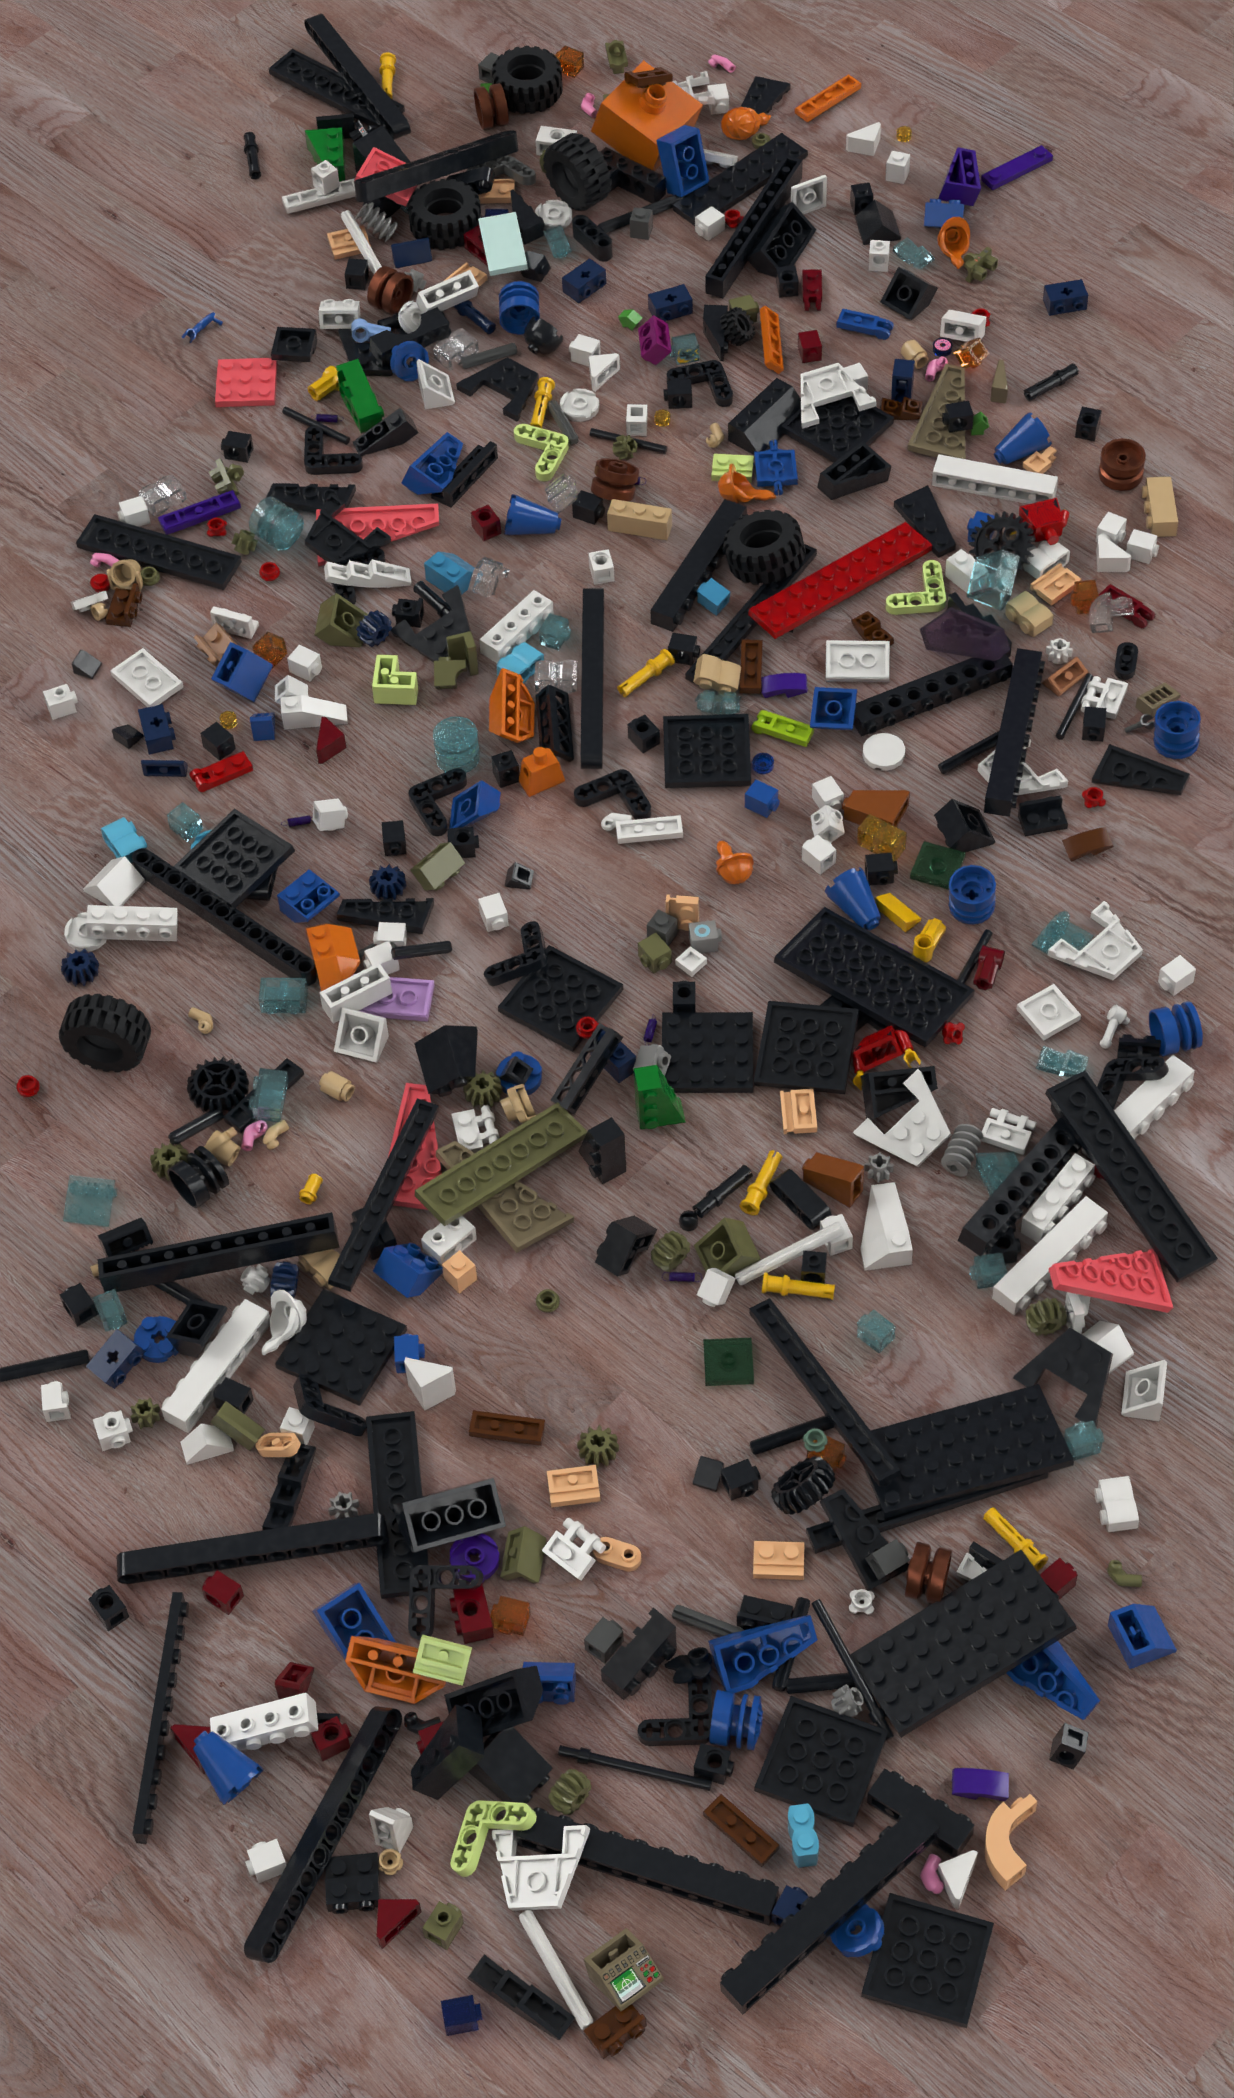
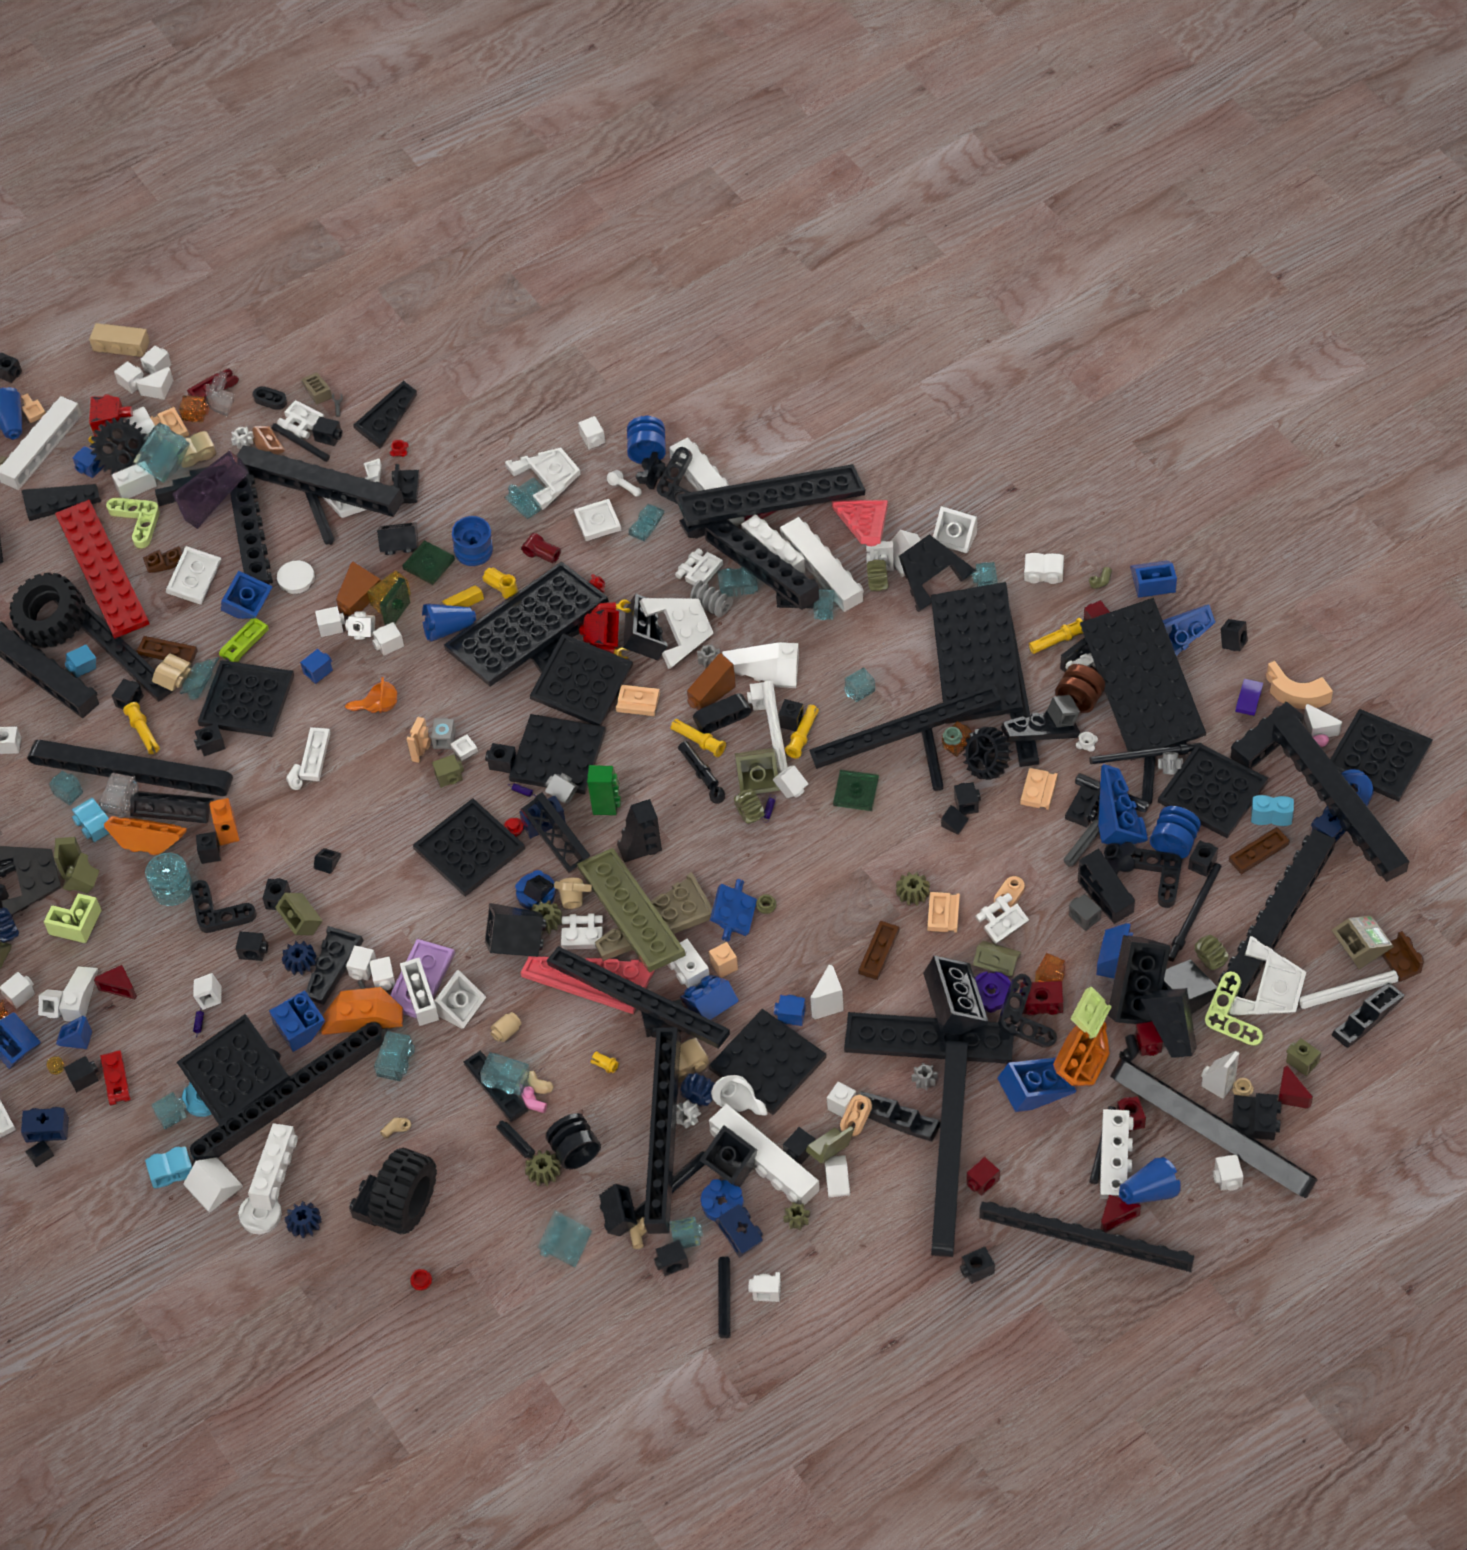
camera: 75 degrees left, 0 degrees up
(113, 1430) = (809, 1241): white brick -> none
(170, 768) = (93, 1124): dark blue slope -> none
(219, 1077) = (467, 1129): black gear -> none
(222, 1147) = (541, 1123): tan piece -> none
(293, 1680) = (1075, 1133): dark red slope -> none
(313, 1408) = (836, 1076): black beam -> none
(421, 950) = (386, 939): black axle -> none
(461, 2015) = (1377, 1056): clear blue brick -> none
(474, 805) = (241, 880): blue slope -> none
(493, 912) = (364, 879): white brick -> none
(516, 626) = (46, 812): white brick -> none
(527, 1266) = (733, 910): none -> blue plate
(529, 961) = (422, 862): black beam -> none
(586, 1022) = (512, 823): red plate -> none
(620, 788) = (261, 768): black beam -> none
(622, 1243) = (735, 834): black brick -> none
(664, 926) = (423, 759): dark grey brick -> none
(763, 763) = (274, 661): clear blue tile -> none
(788, 683) = (197, 629): dark purple slope -> none
(858, 842) = (395, 602): none -> clear green plate
(880, 868) = (416, 598): black brick -> none
(969, 966) = (525, 558): black bar -> none
(1087, 842) = (444, 460): reddish brown slope -> none
(1122, 464) = (65, 353): copper wheel -> none
(1177, 730) = (359, 377): blue wheel -> none

